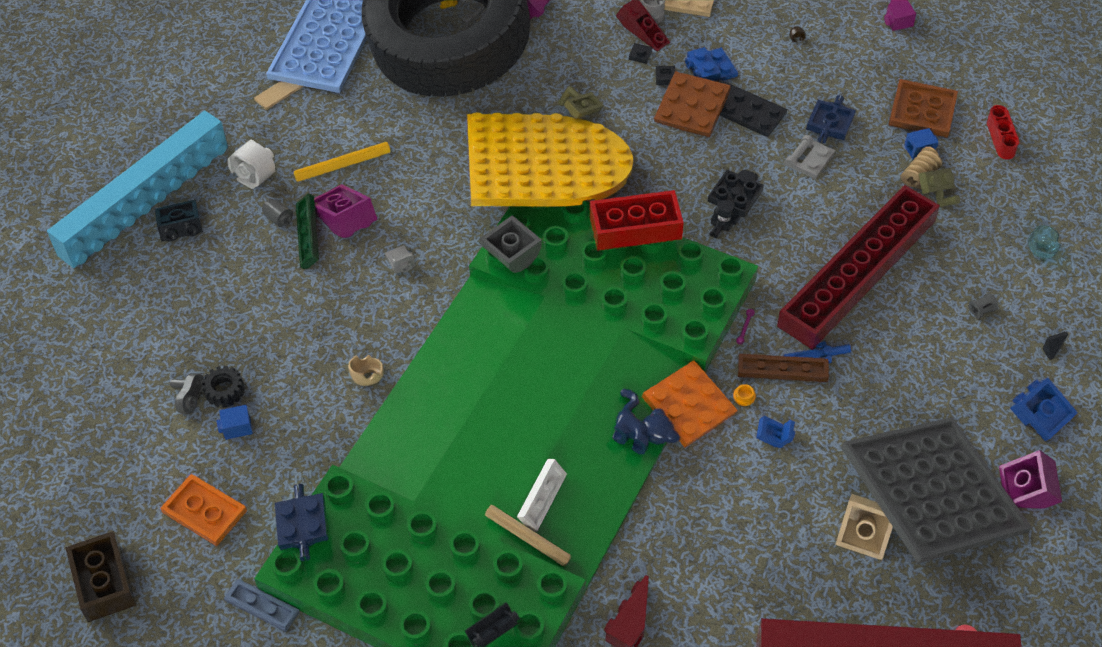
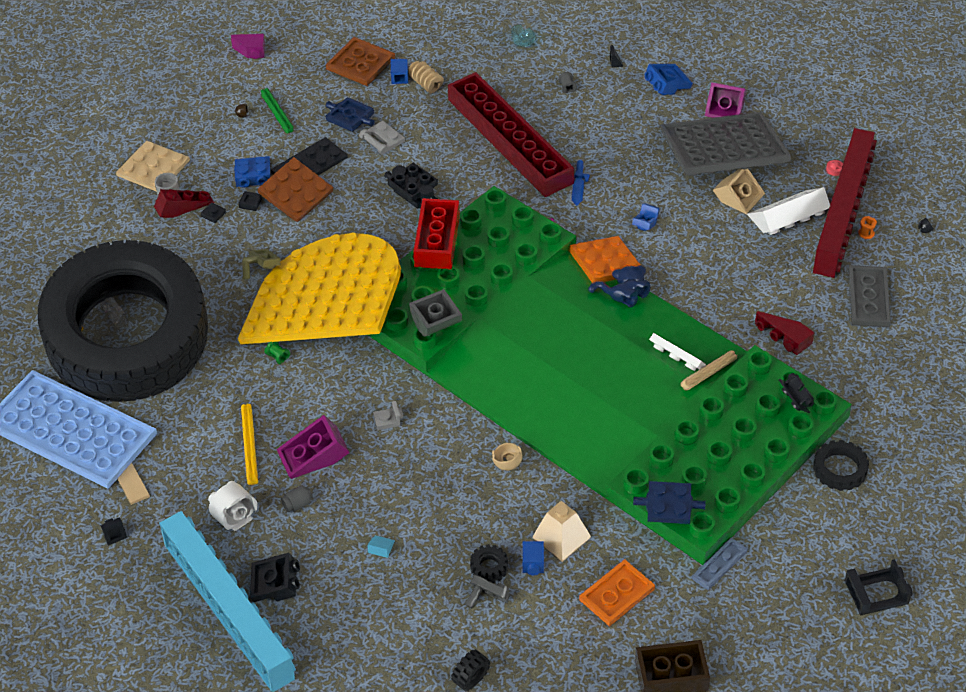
camera: 75 degrees left, 5 degrees down
(82, 396) = (470, 670): none -> black tyre
(216, 93) = (113, 531): none -> black tile
(234, 293) = (380, 546): none -> medium azure slope
(276, 443) = (561, 531): none -> tan slope
(307, 231) = (329, 479): dark green tile -> none
(461, 152) = (277, 352): none -> green bush
(744, 395) = (604, 229): light orange plate -> none
(783, 367) = (587, 202): reddish brown plate -> none
(811, 61) = (277, 110): none -> green axle
(852, 588) = (790, 210): none -> white slope
(936, 182) = (444, 70): olive plate -> none
(1002, 132) = (406, 25): red beam -> none

